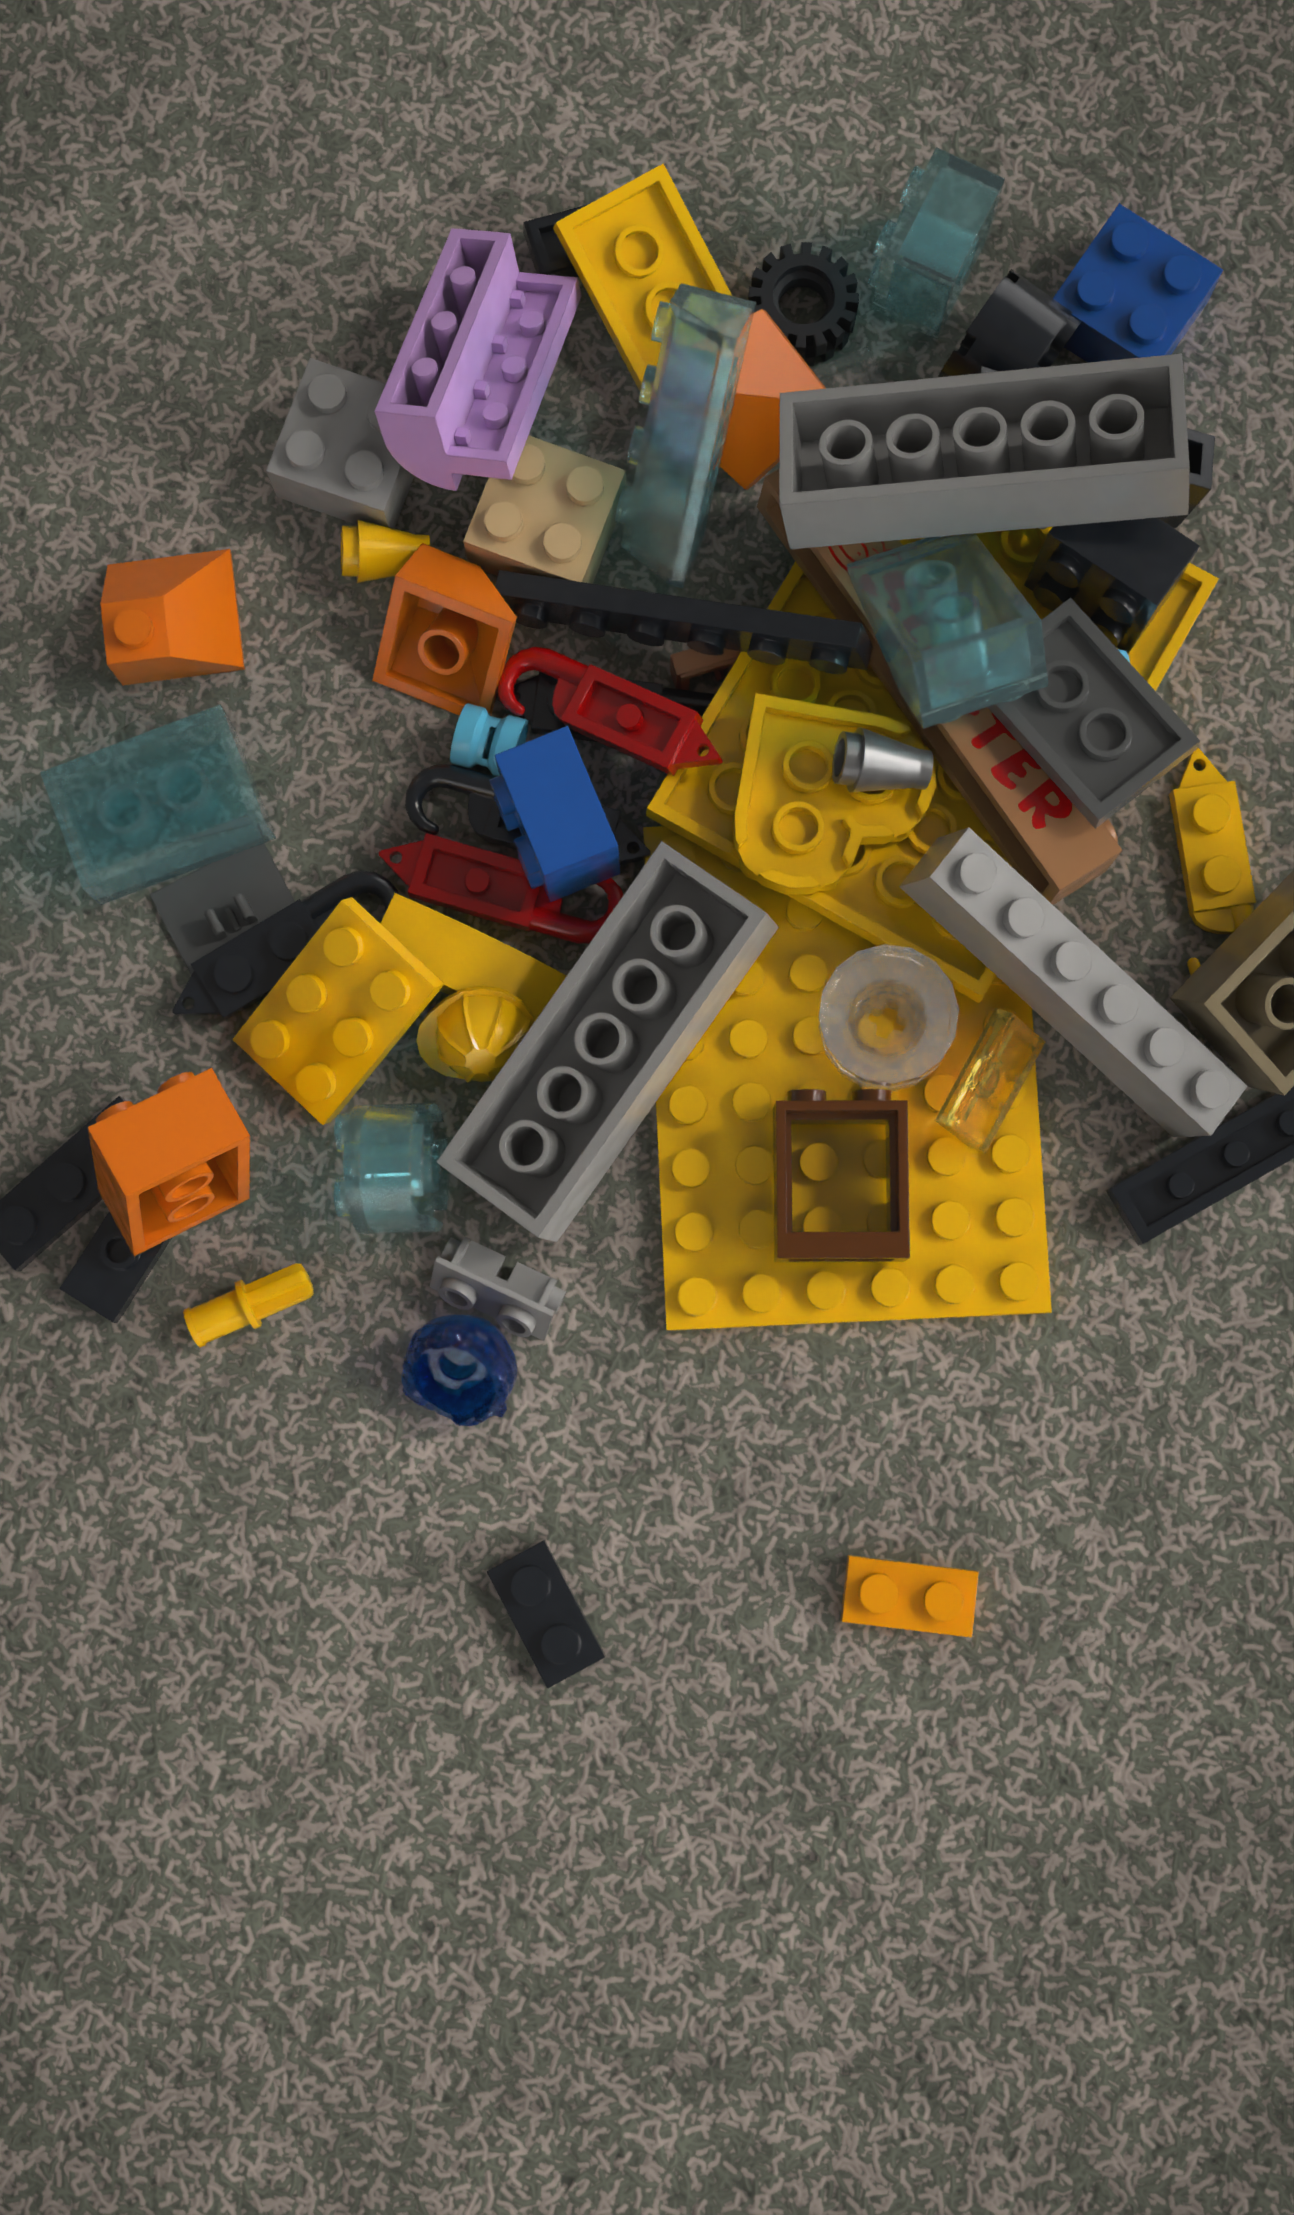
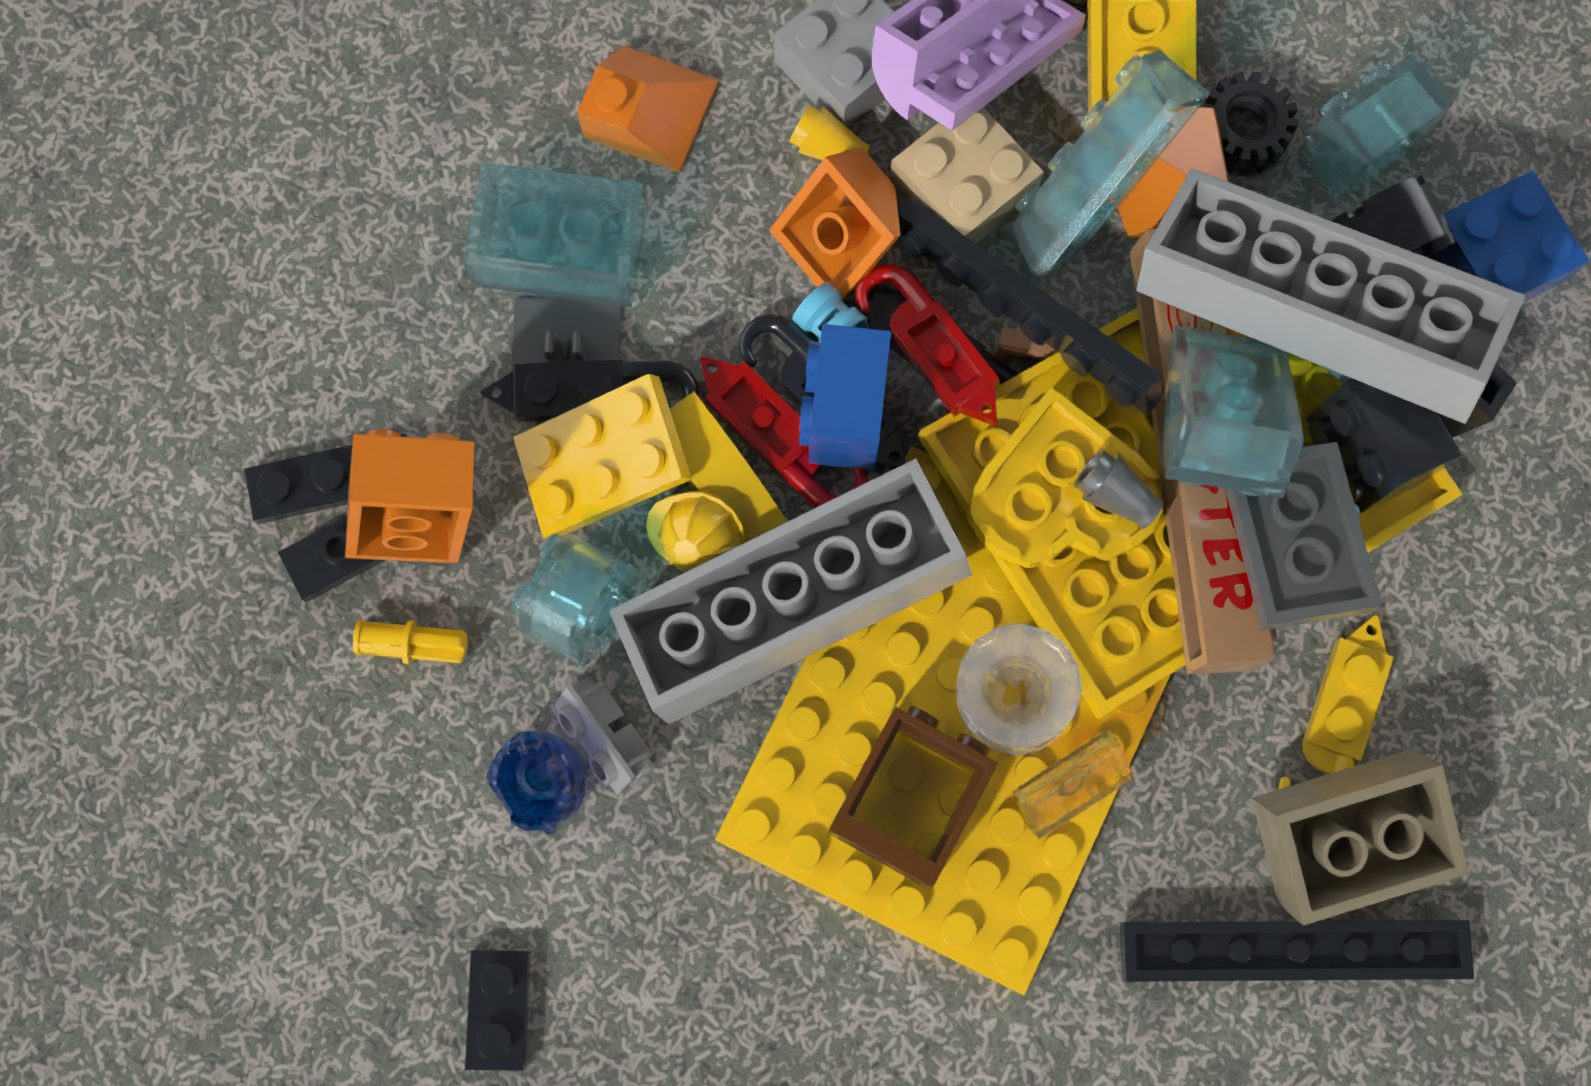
camera: 25 degrees right, 5 degrees down
(1073, 984) = (1179, 746): light grey brick -> none

